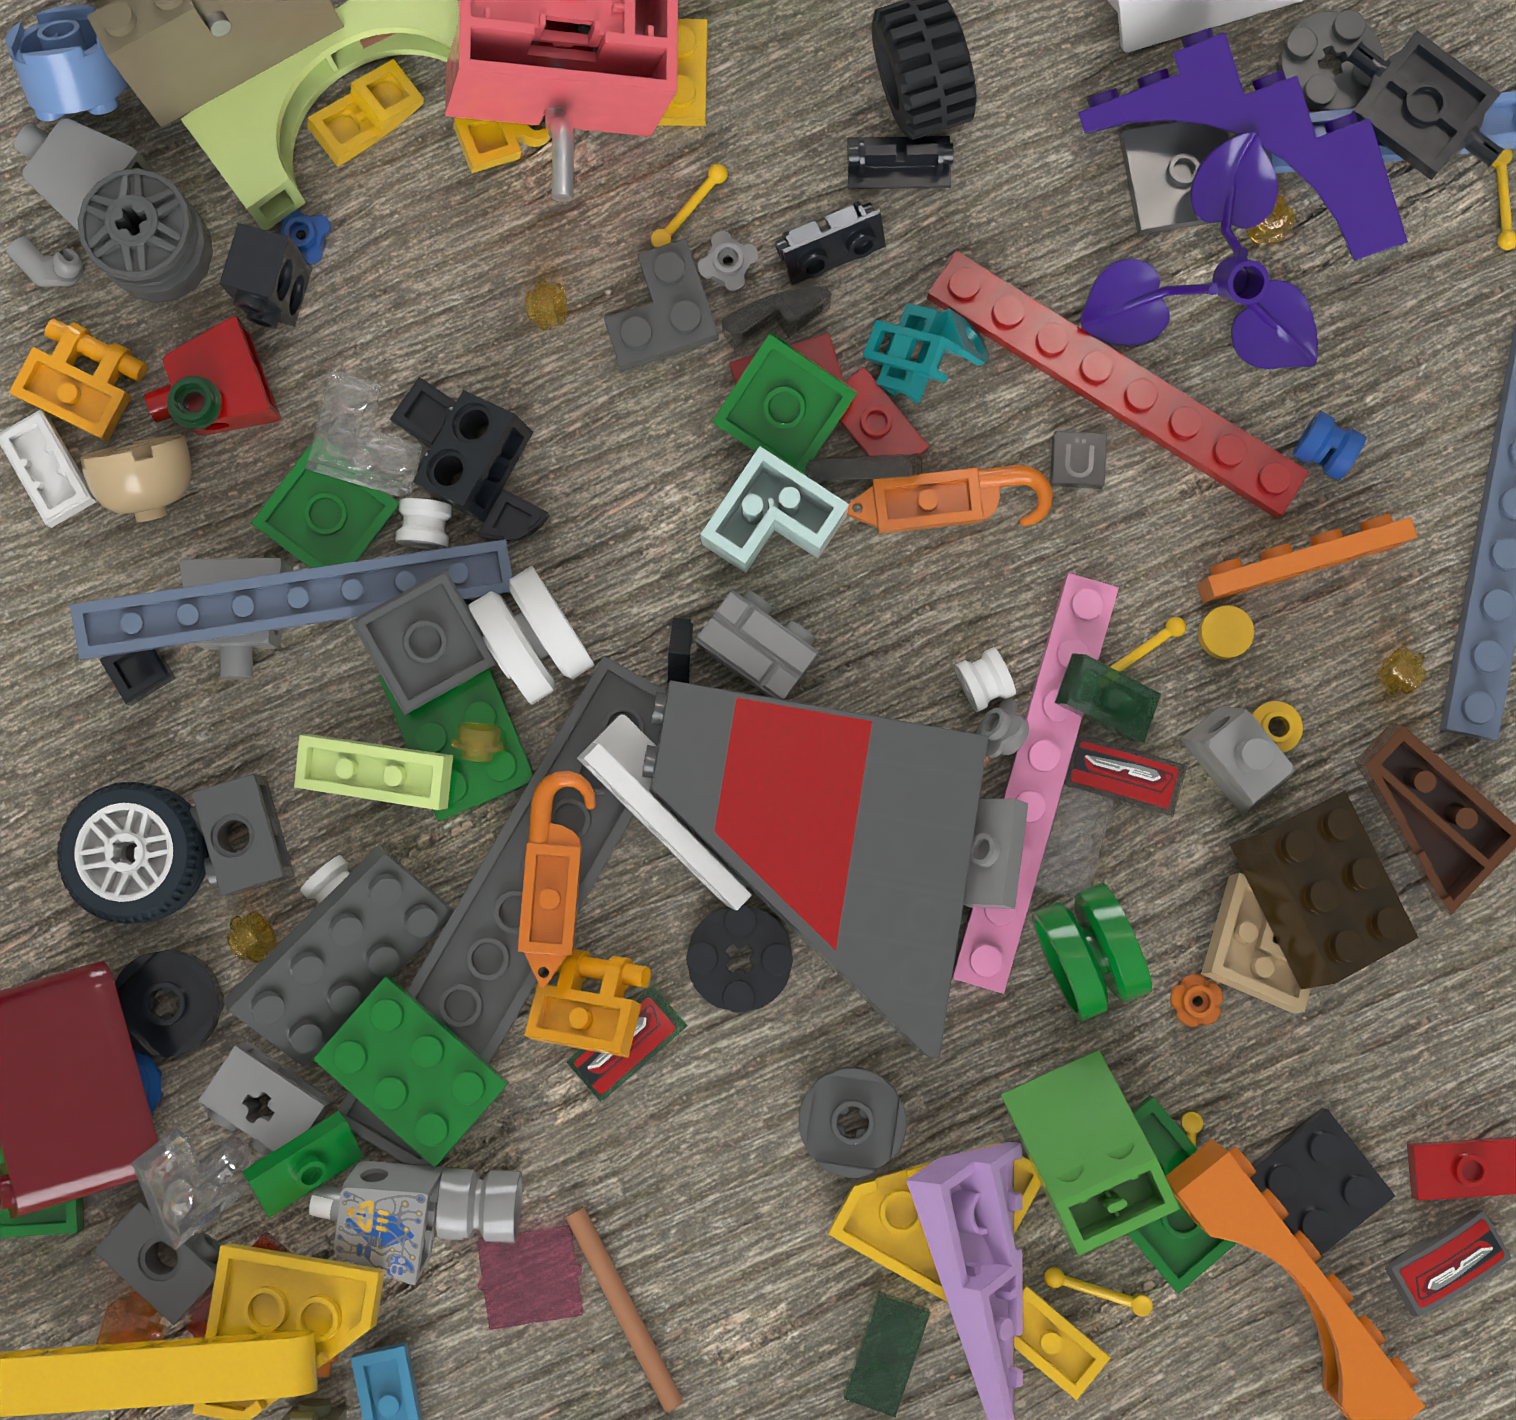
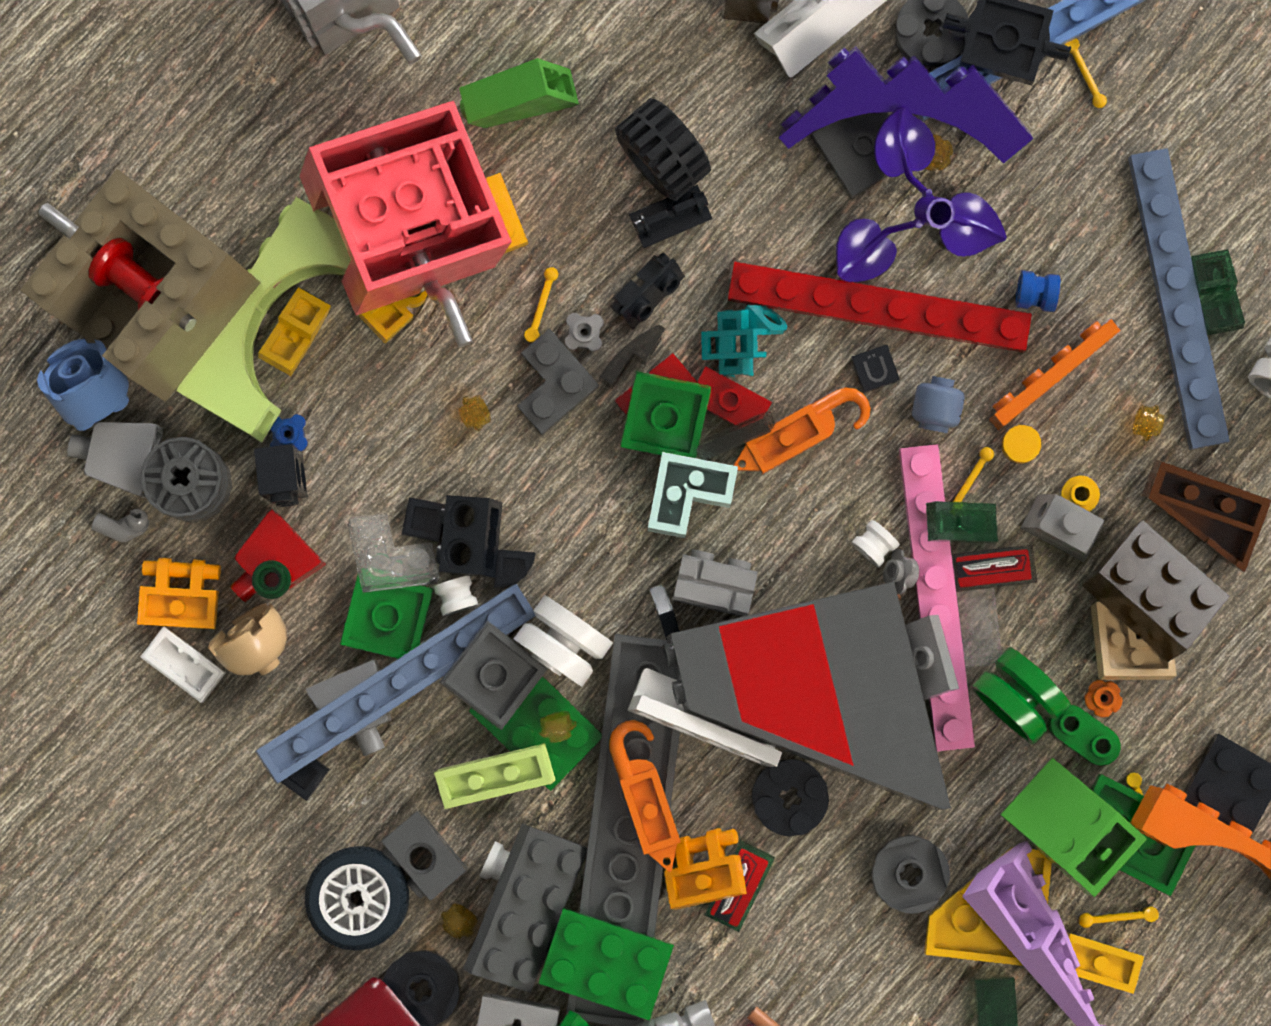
camera: 25 degrees left, 0 degrees up
(1140, 536) = (938, 405): none -> sand blue head
(1152, 1040) = (1085, 735): none -> green plate

